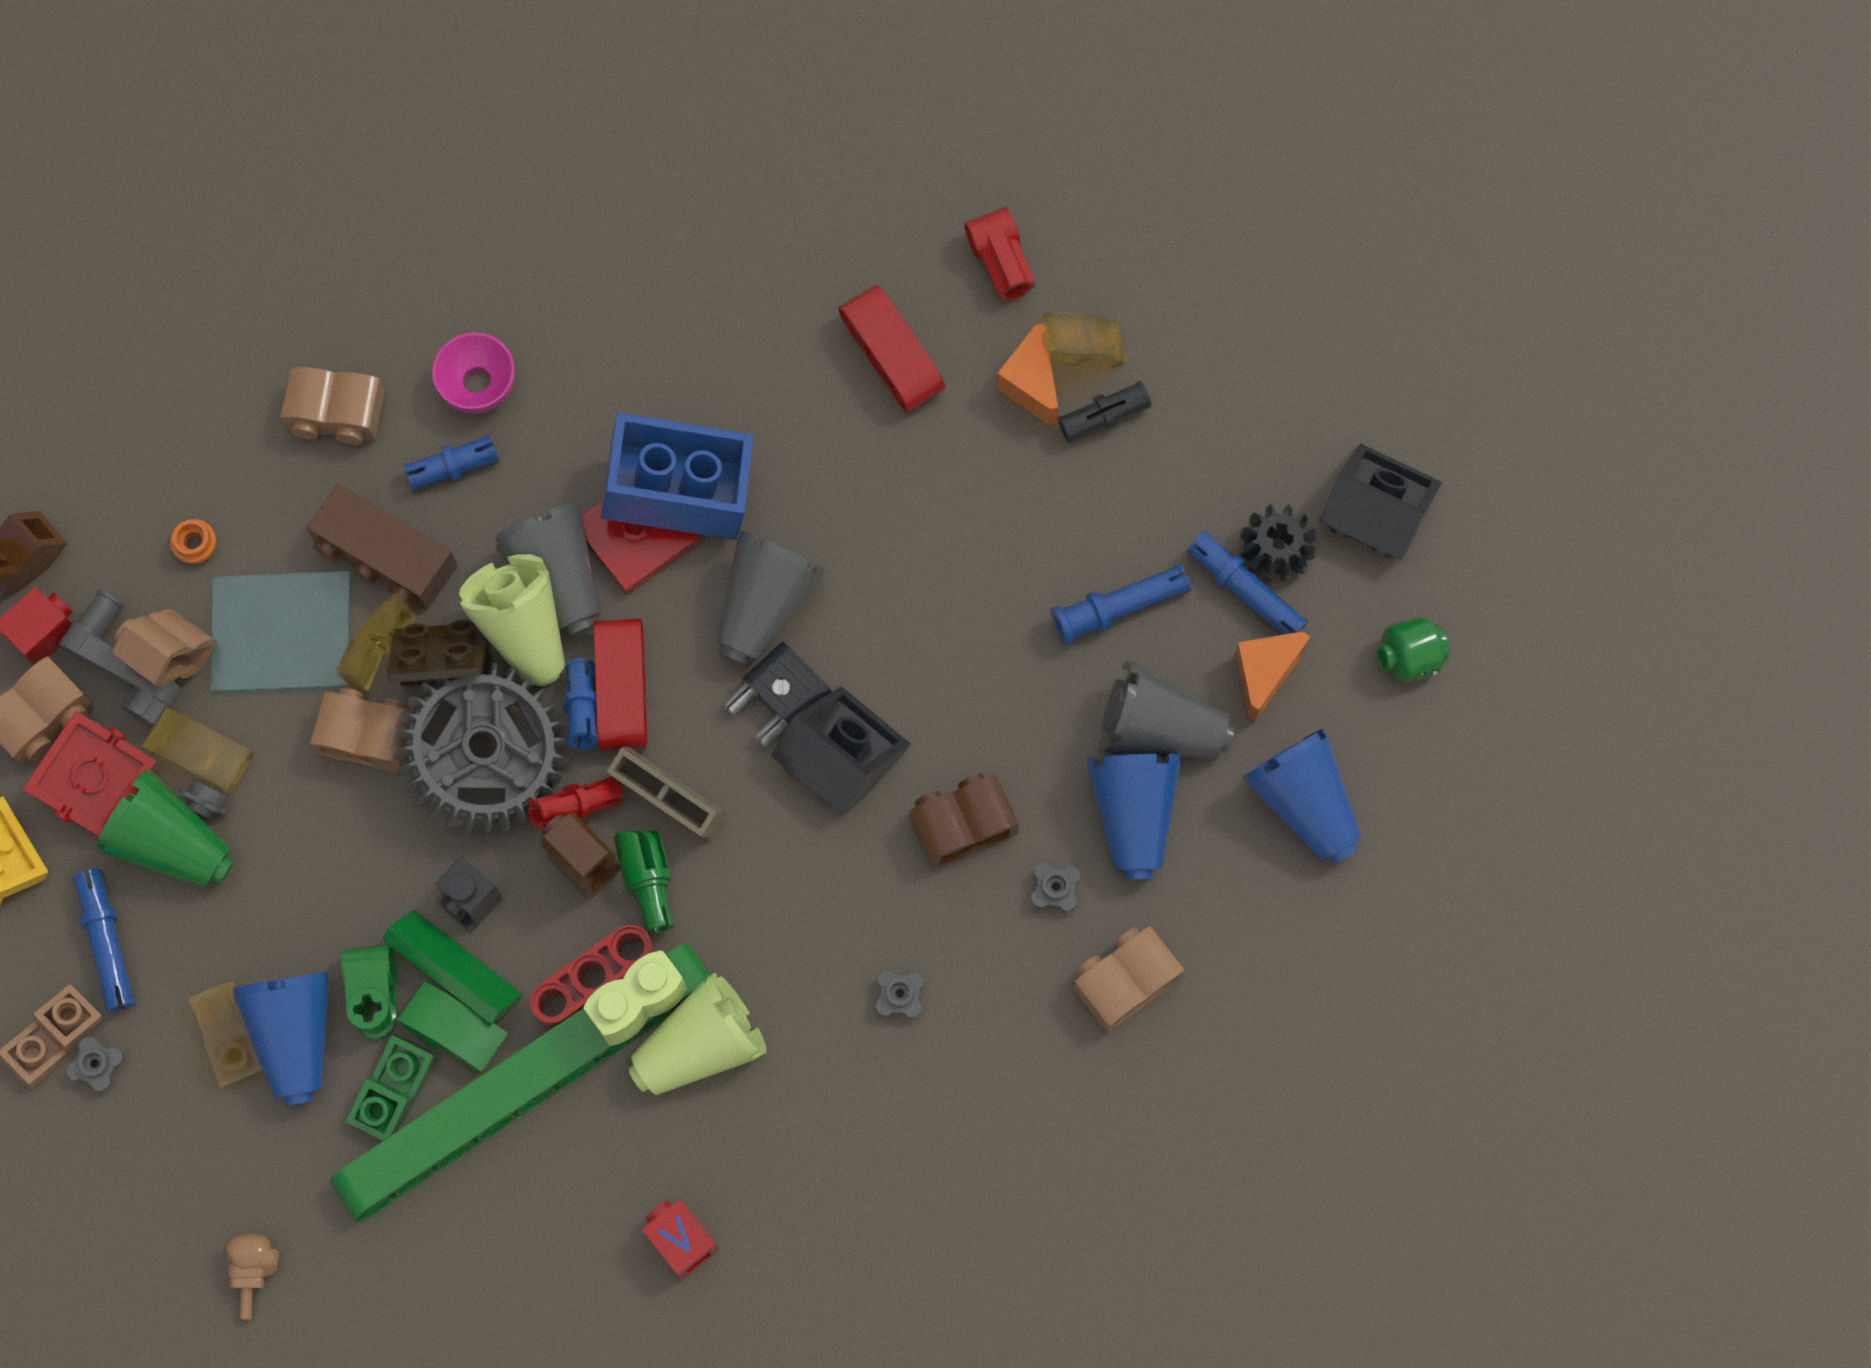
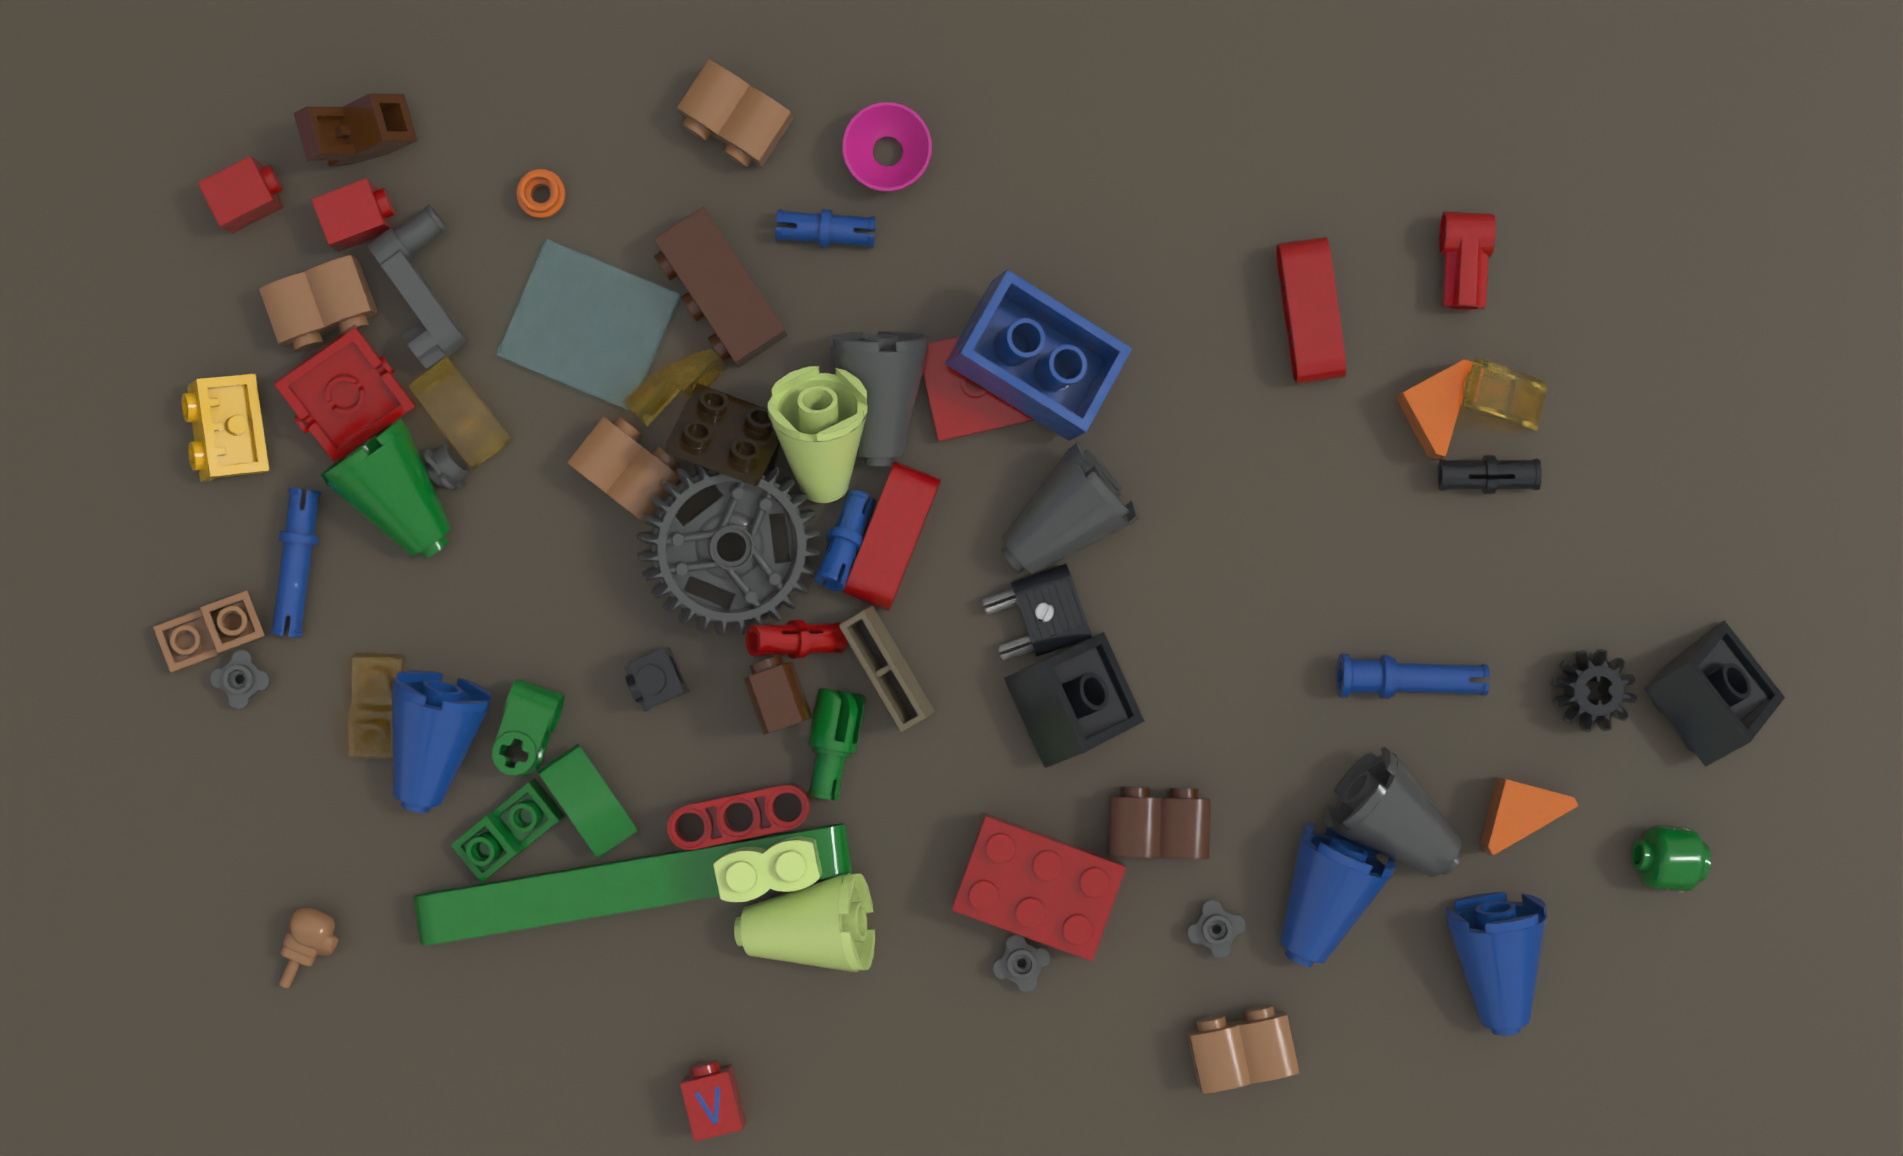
camera: 25 degrees right, 15 degrees up
(163, 646) = (465, 298): medium nougat brick -> none
(452, 966) = (612, 742): green tile -> none
(882, 917) = (1038, 887): none -> red brick
(1246, 585) = (1541, 715): blue pin -> none

